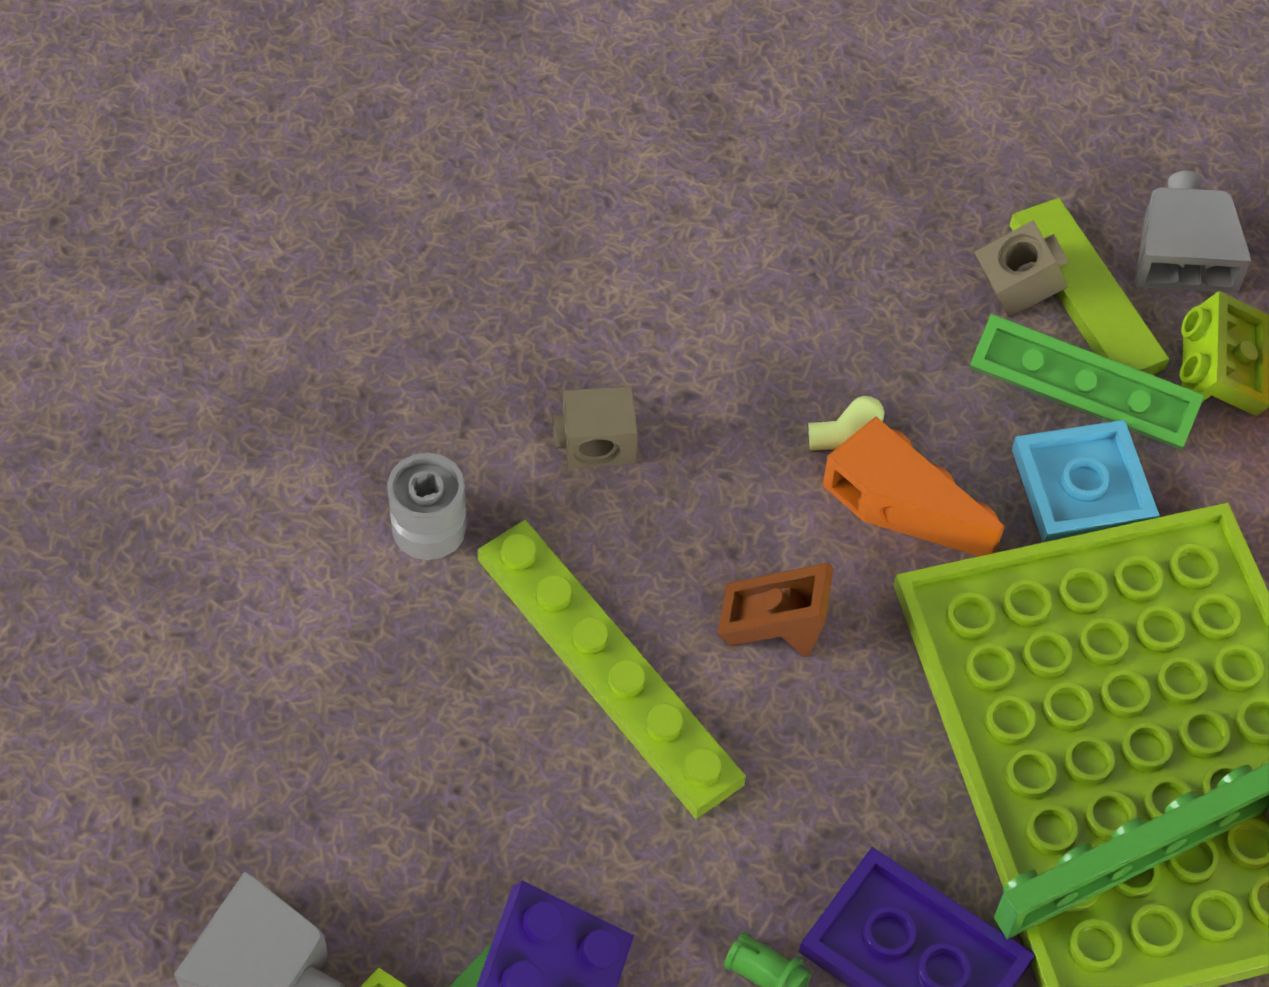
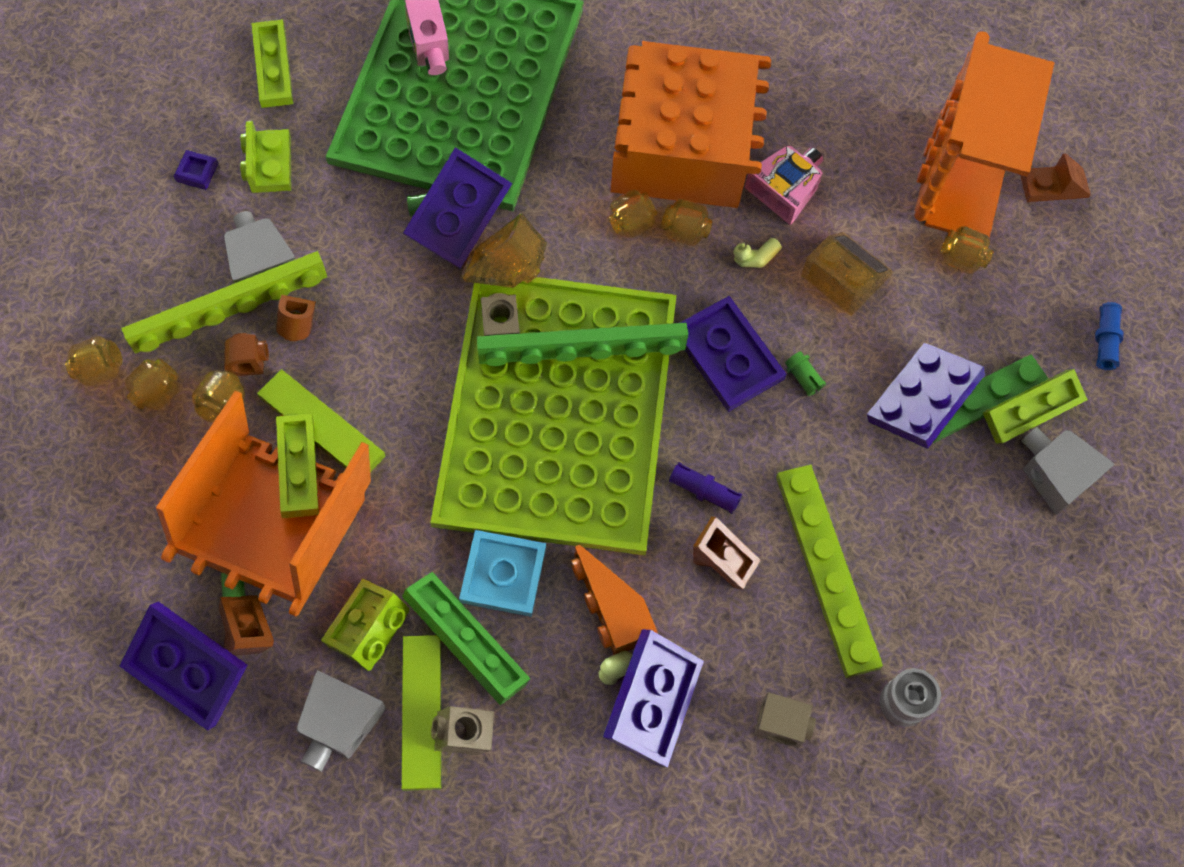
camera: 160 degrees left, 10 degrees up
(792, 384) = (653, 698): none -> plate
(850, 709) = (705, 488): none -> dark purple pin

